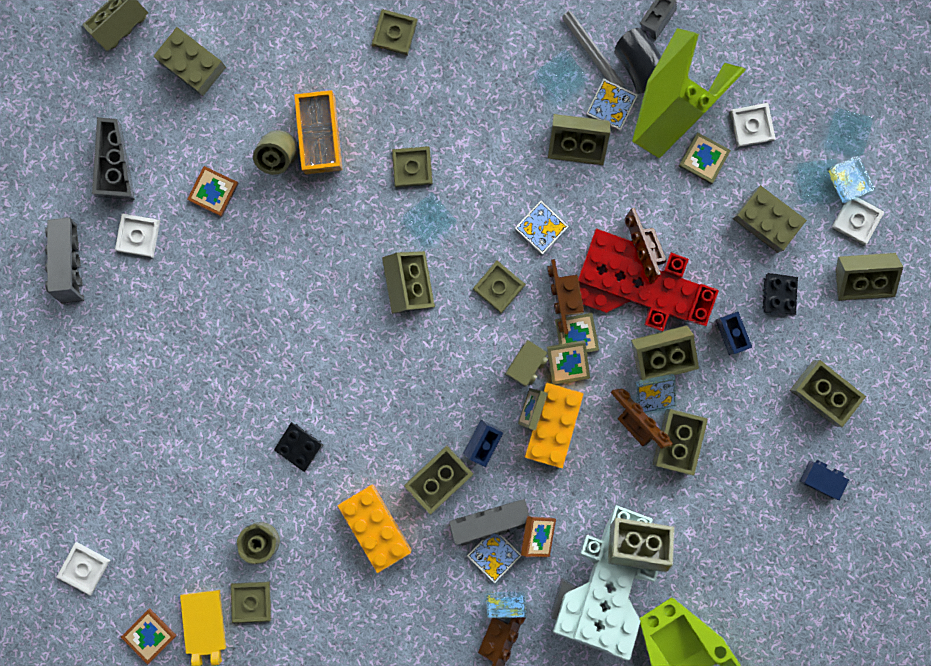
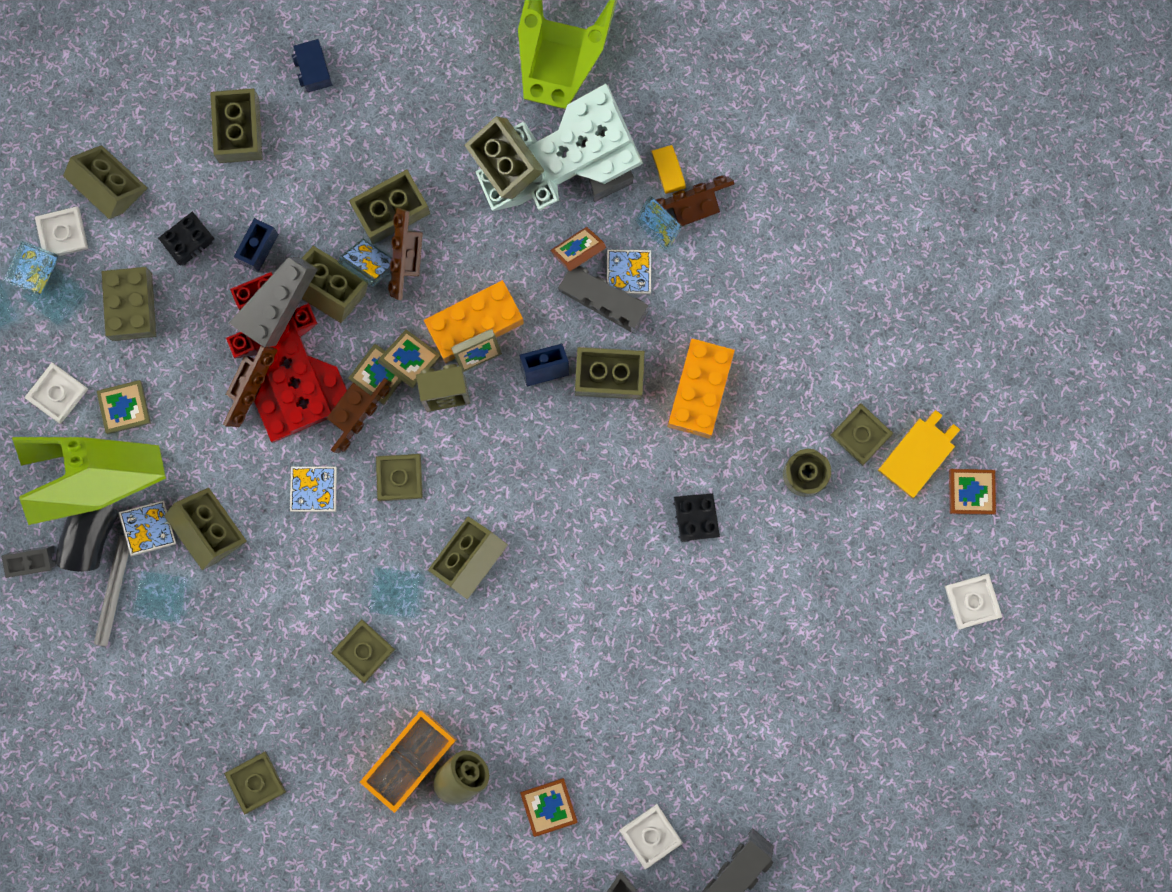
camera: 140 degrees left, 5 degrees down
(537, 646) = (668, 169): none -> yellow slope
(680, 306) = (275, 302): none -> dark grey wedge

